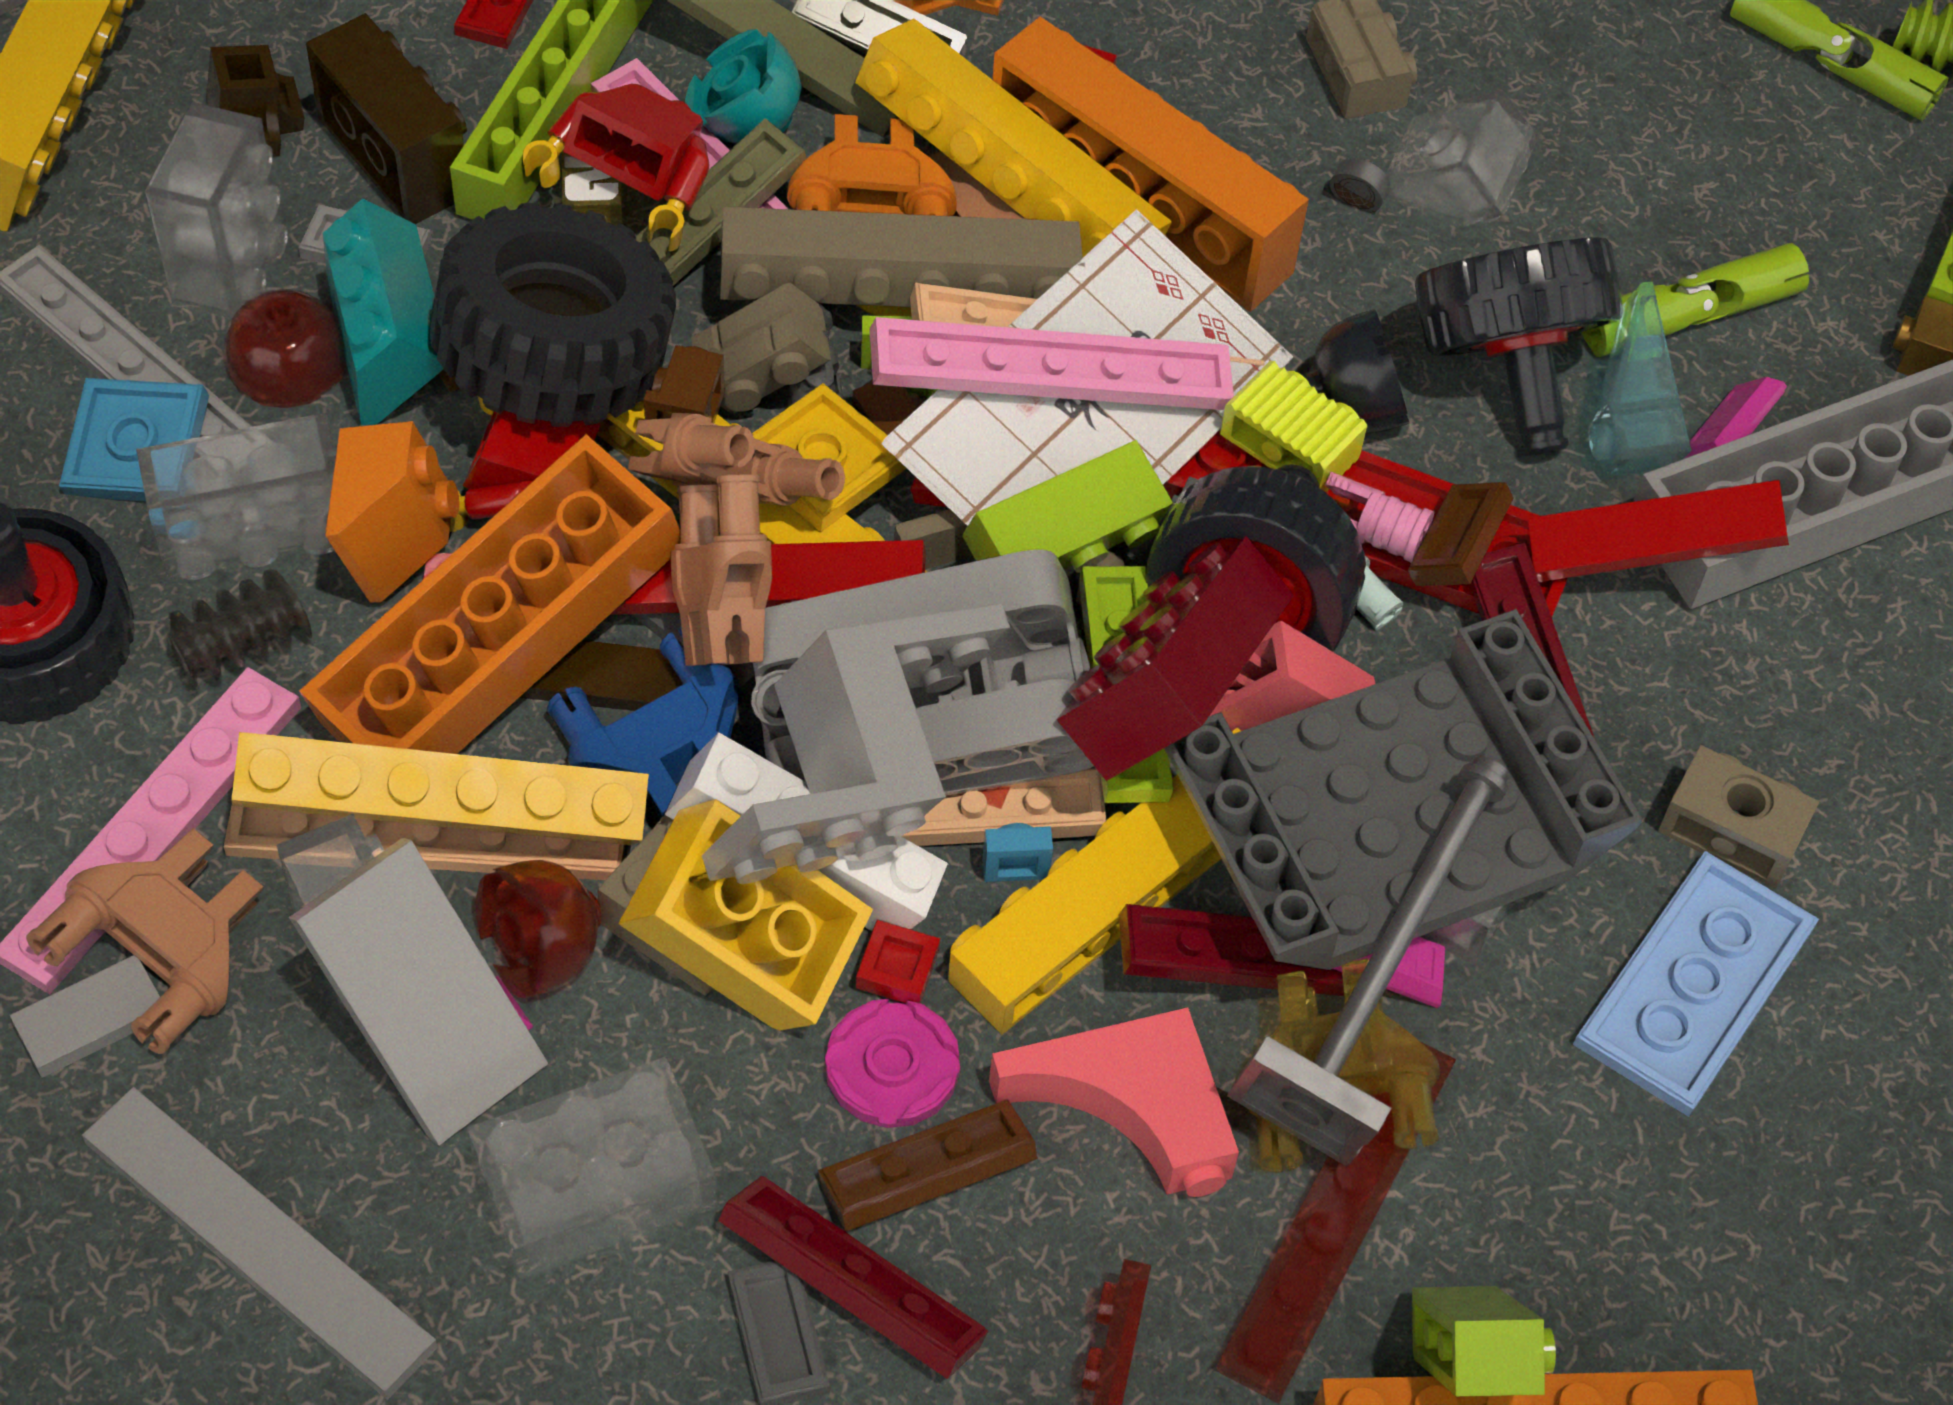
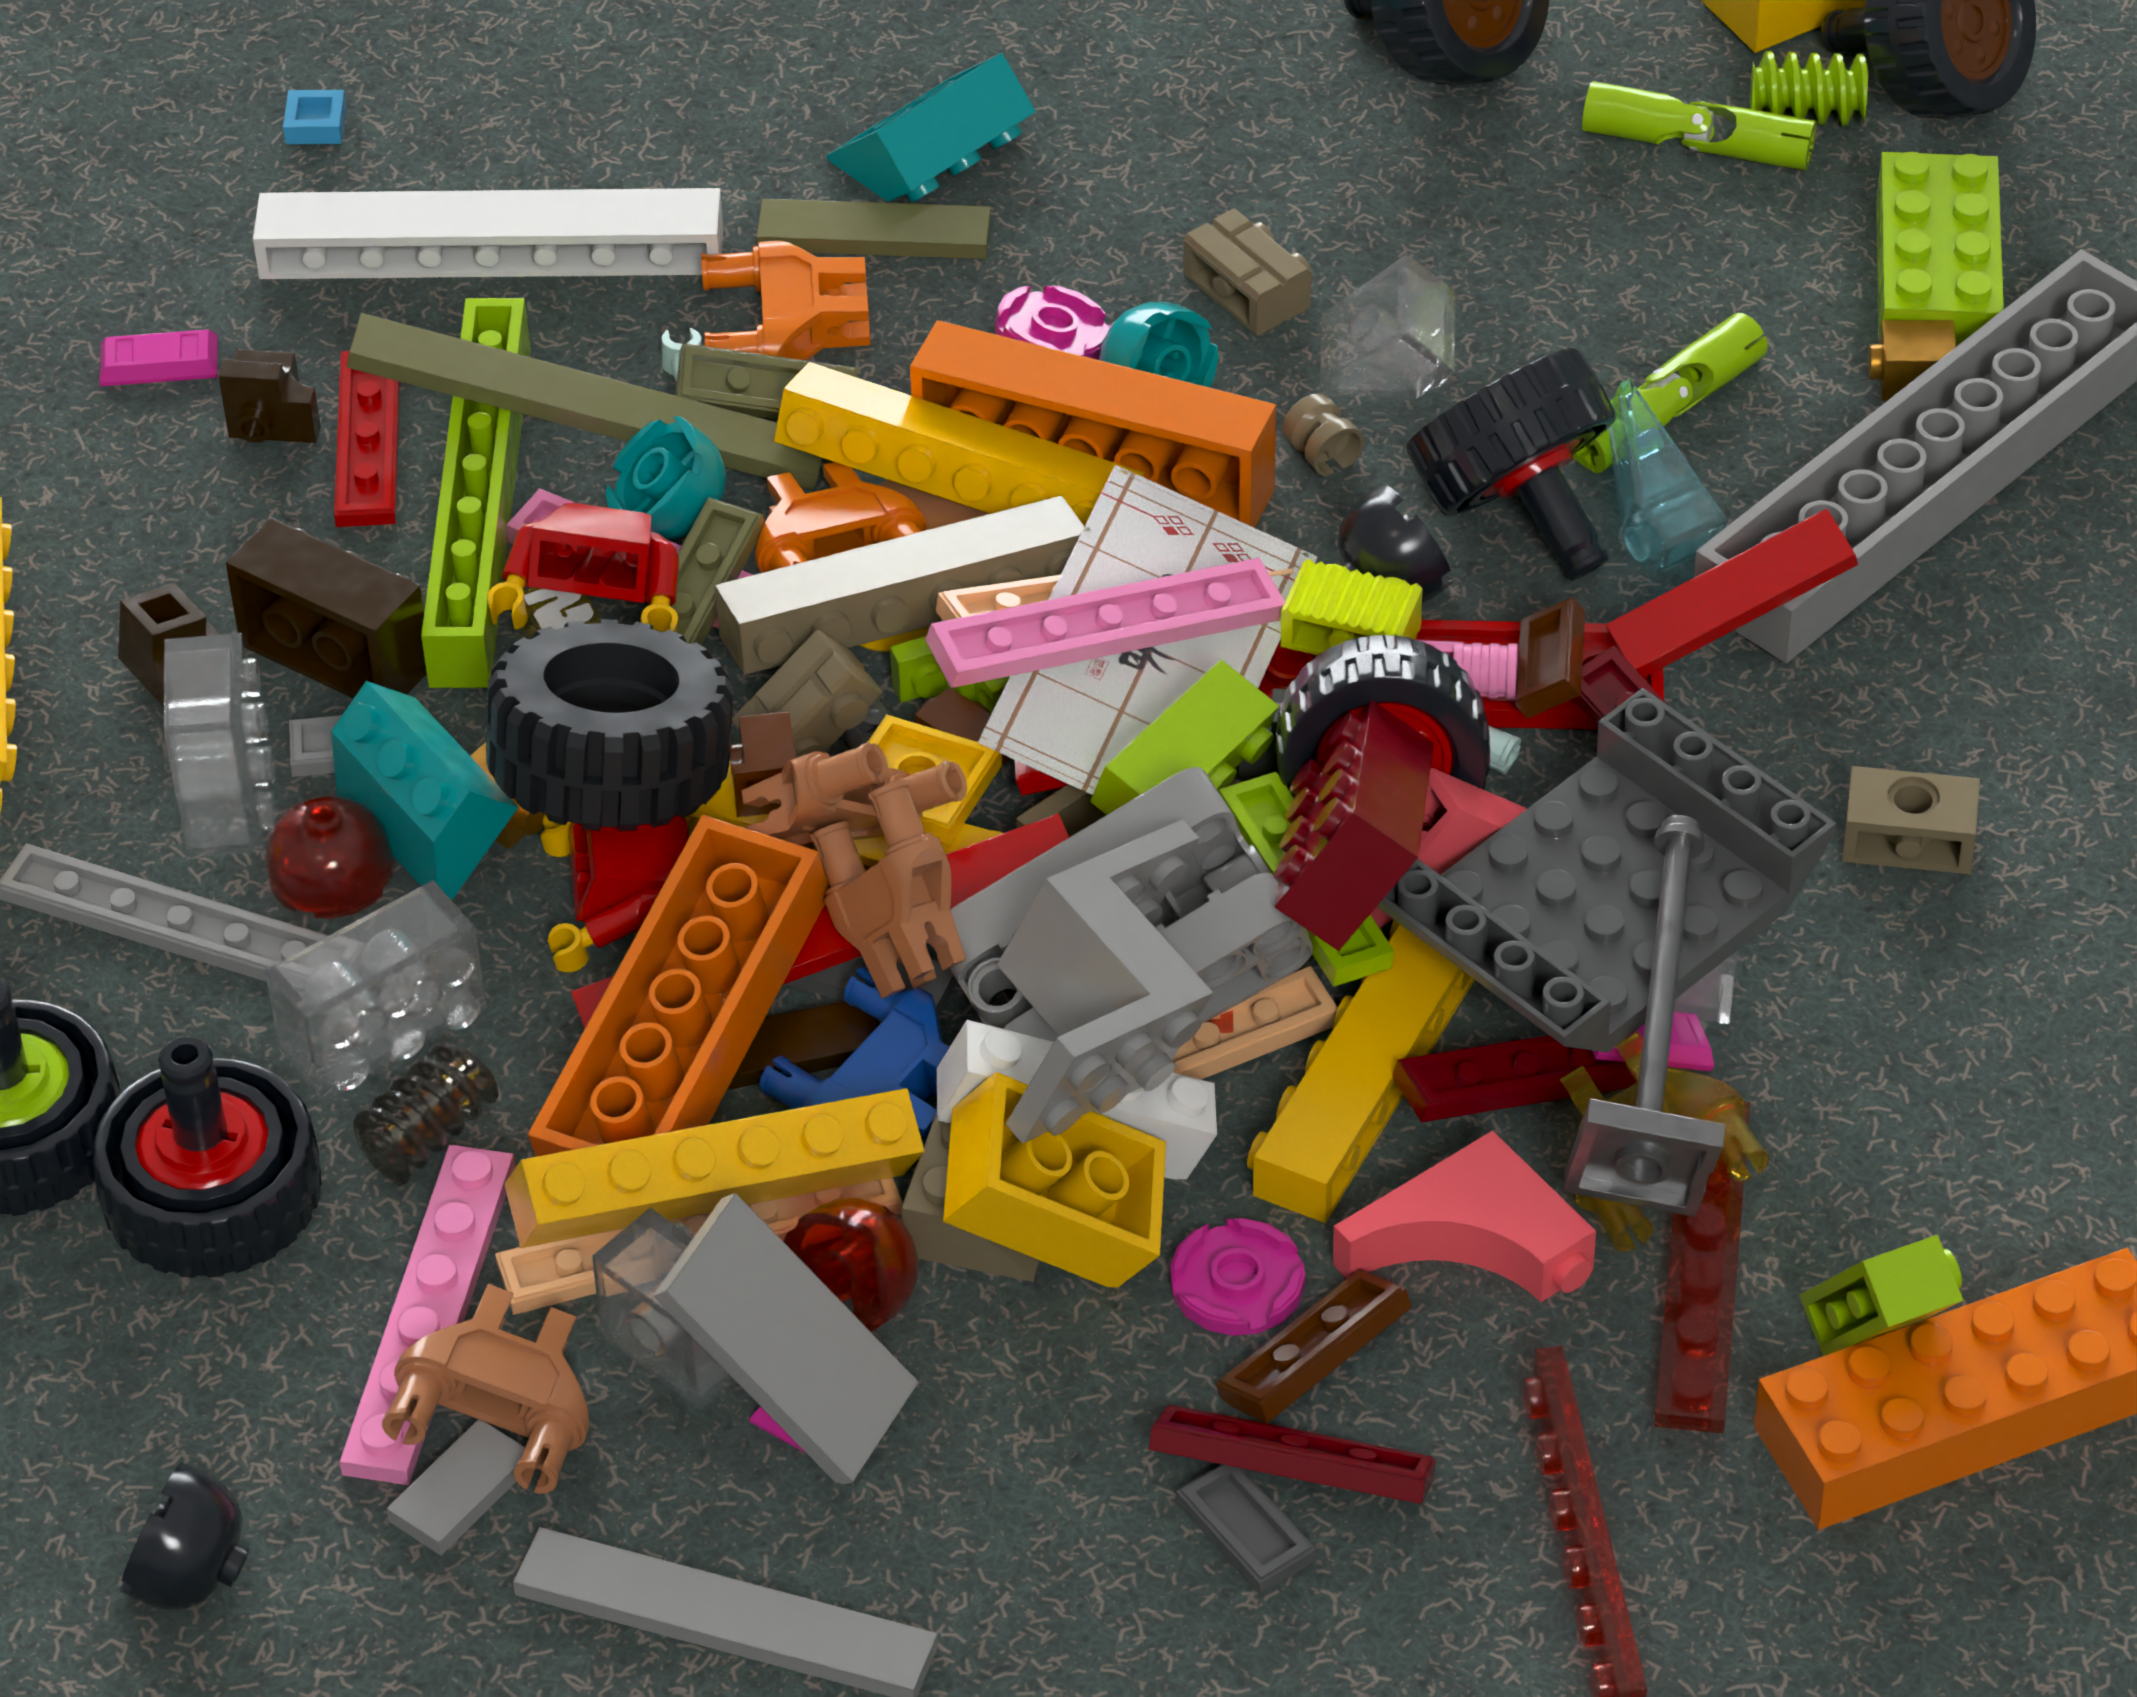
camera: 15 degrees left, 10 degrees down
(116, 421) = (217, 979): dark azure tile -> none
(388, 505) = (529, 944): orange slope -> none
(592, 1167) = (1010, 1444): clear brick -> none
(897, 962) = (1202, 1190): red plate -> none
(1017, 853) = (1268, 1063): dark azure plate -> none
(1162, 52) = (1053, 320): none -> dark pink tile
(1244, 106) = (1164, 342): none -> teal cylinder
(1352, 227) = (1319, 431): none -> dark tan wheel
(1360, 184) = (1301, 380): flat silver tile -> none
(1696, 983) = (1934, 972): light blue tile -> none
(1738, 414) = (1755, 475): dark pink tile -> none

